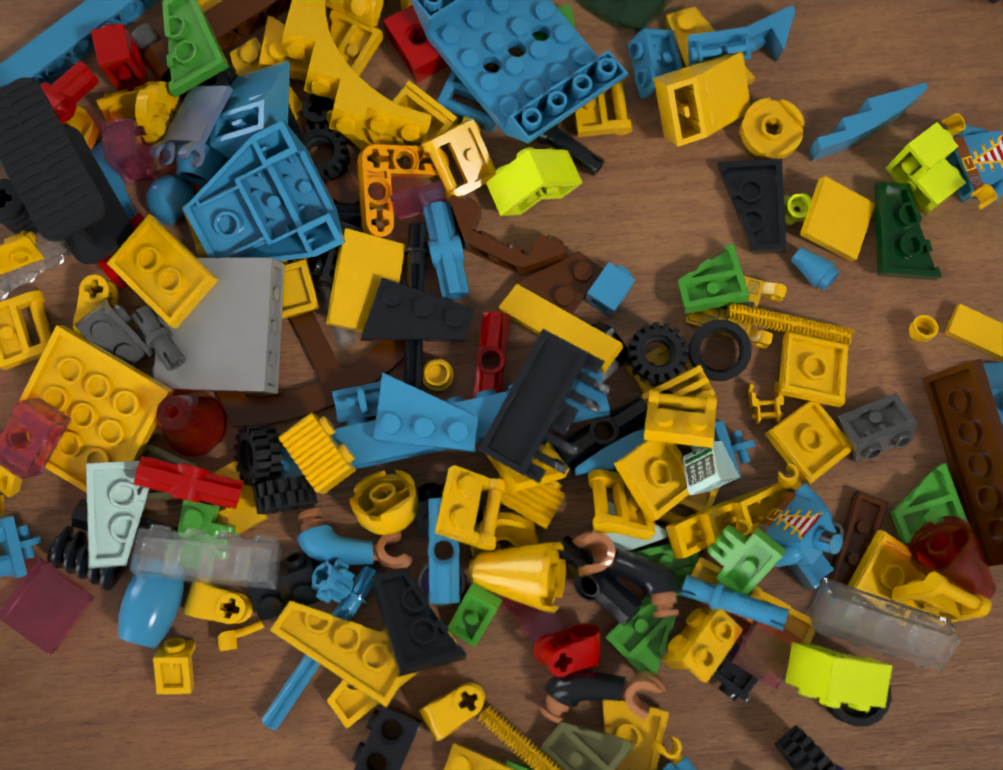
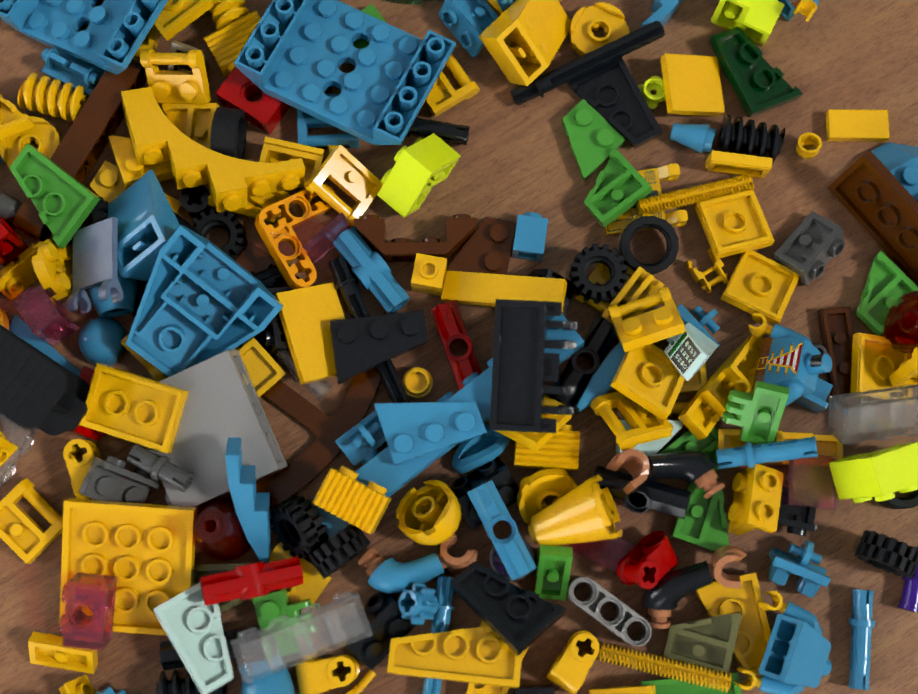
camera: 25 degrees left, 0 degrees up
(220, 412) = (250, 506): none -> dark azure slope
(377, 61) = (229, 132): none -> black tyre
(461, 505) = (499, 484): yellow plate -> none
(472, 461) = (479, 450): none -> dark azure arm
(497, 278) = (429, 274): none -> yellow brick
(510, 695) = (623, 617): none -> light grey beam
(714, 224) = (590, 138): none -> bright green wing
(718, 728) = (810, 574): none -> dark azure hips
(747, 151) = (588, 62): none -> black axle
(845, 314) = (738, 164): none -> yellow tile
(869, 296) = (750, 138): none -> black piece

